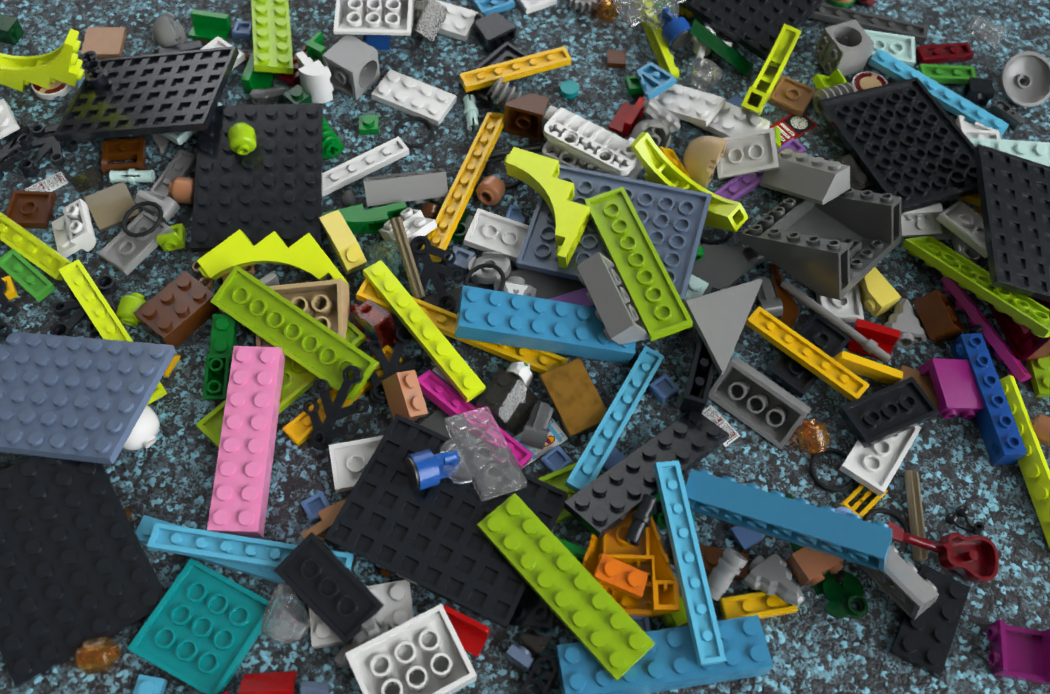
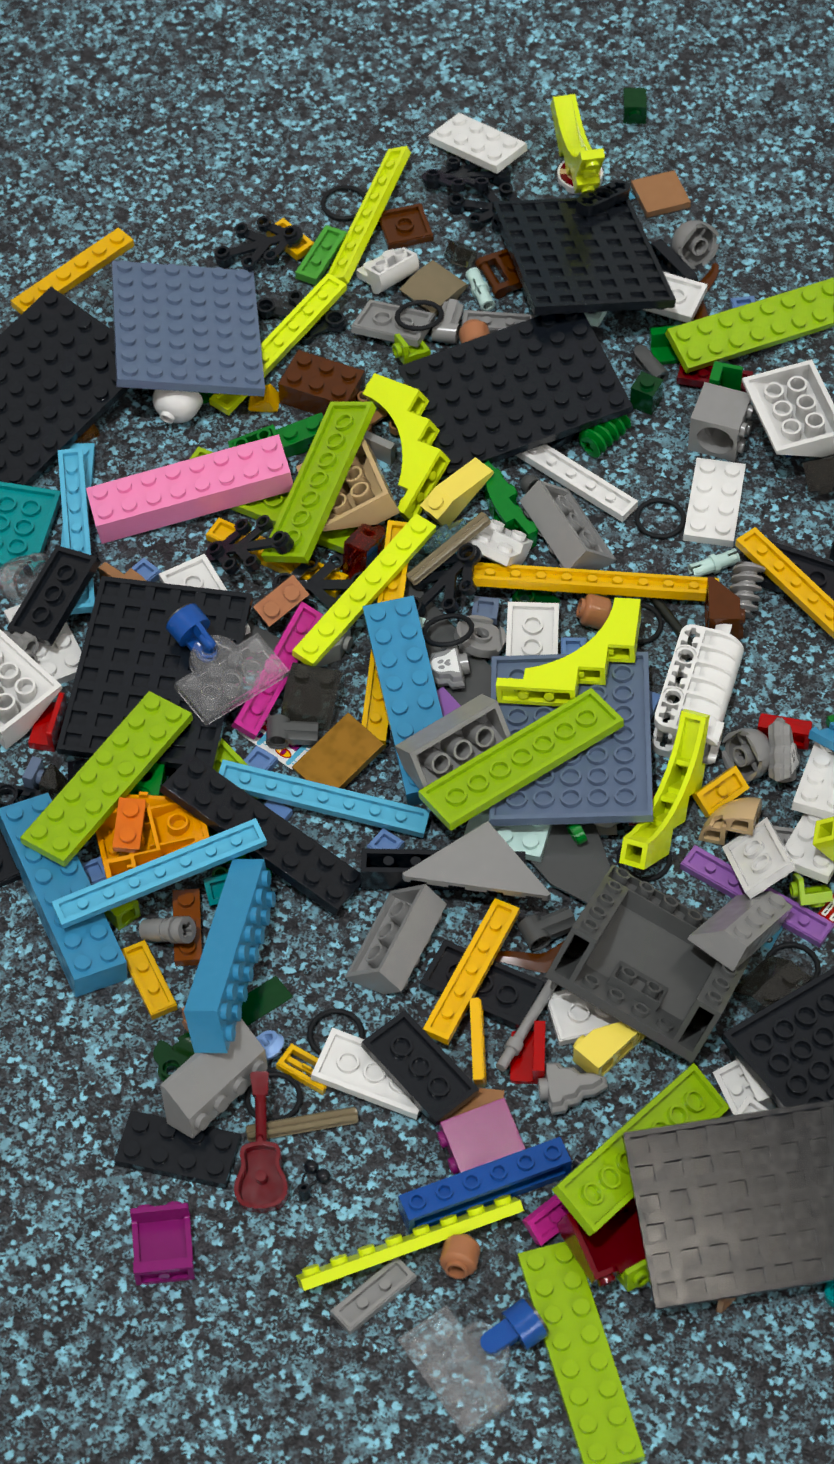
camera: 80 degrees right, 5 degrees down
(49, 184) = (444, 228): white sticker -> none
(128, 306) = (313, 345): lime head -> none
(209, 25) = (728, 276): green panel -> none
(242, 138) = (541, 350): lime head -> none
(315, 78) = (682, 392): white brick -> none
(368, 124) = (650, 471): green plate -> none
(430, 210) = (540, 559): reddish brown plate -> none
(522, 371) = (348, 699): white rock -> none
(569, 89) = (804, 657): teal tile -> none
(640, 520) = (191, 824): black pin -> none
(715, 417) = (356, 911): white sticker -> none
(773, 579) = (173, 978): light grey rock -> none
(813, 436) = (364, 997): clear orange head -> none
(938, 317) = (588, 1122): reddish brown slope -> none

